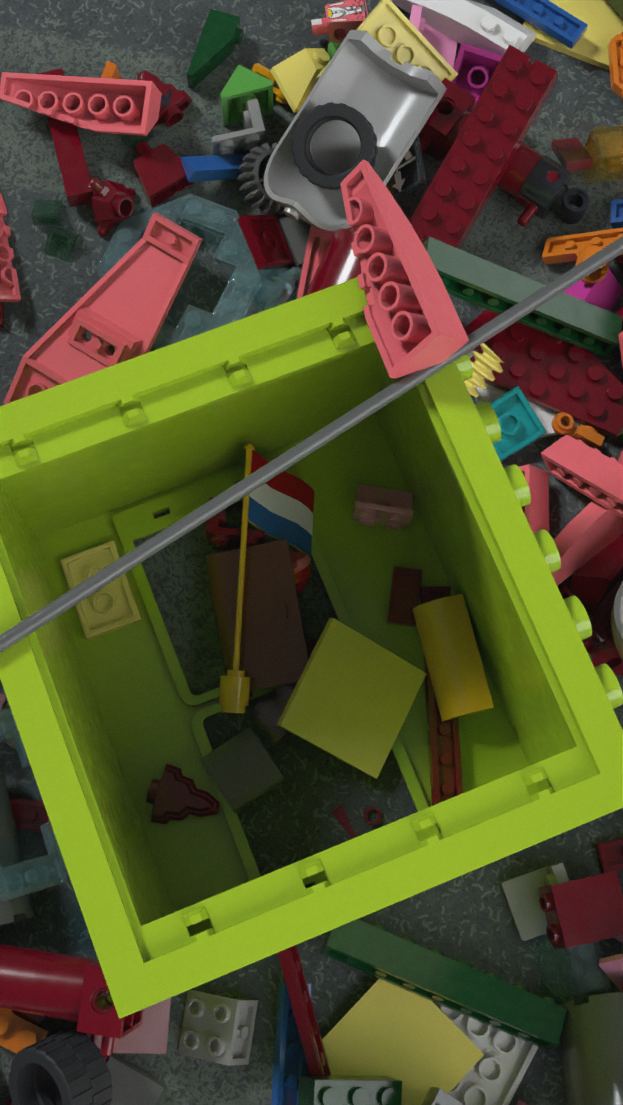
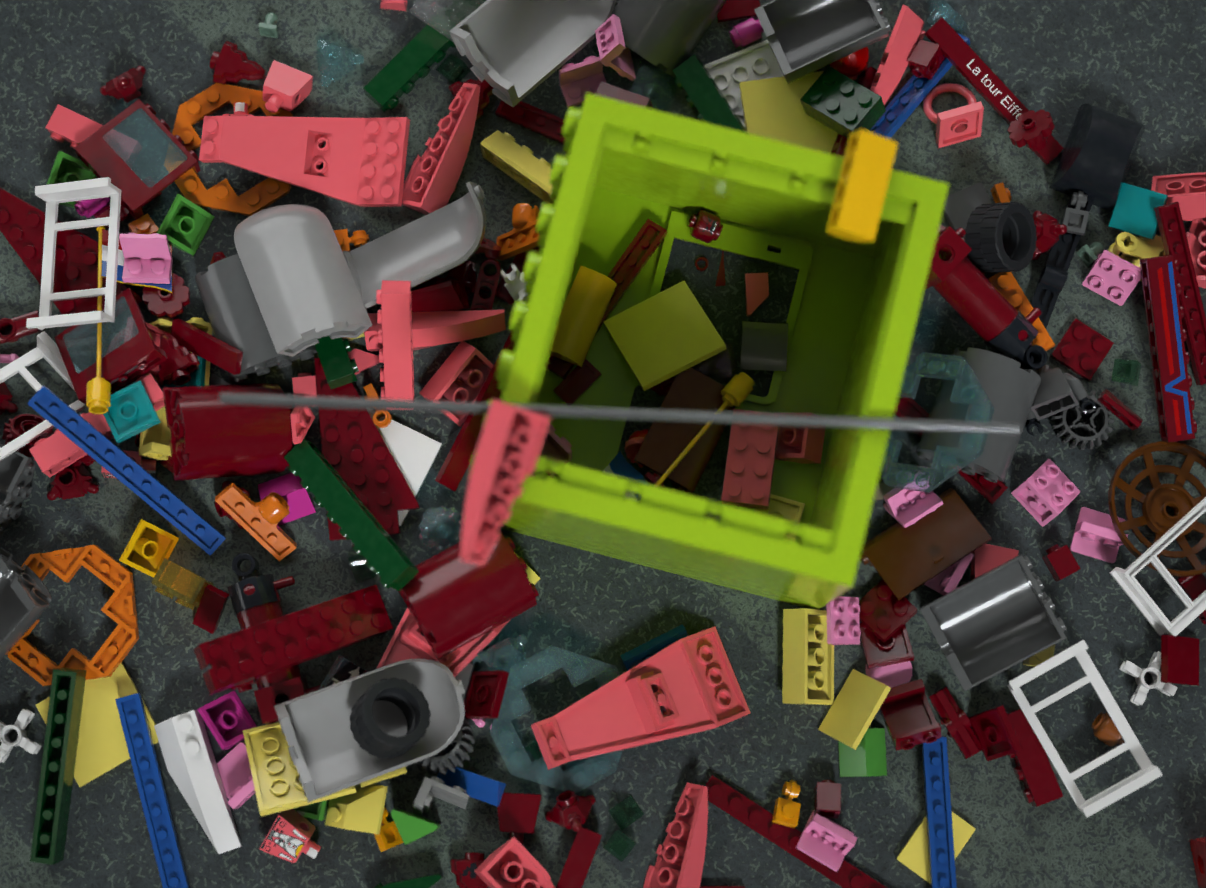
camera: 140 degrees left, 5 degrees up
(139, 698) = (800, 443): none -> coral slope
(171, 637) = (750, 464): none -> coral brick
(178, 797) = (815, 358): dark red rock -> none
(226, 924) = (862, 187): none -> yellow brick
(293, 825) = (756, 290): none -> coral tile
(482, 369) = (417, 488): light yellow piece -> none
(517, 423) = (418, 444): teal tile -> none

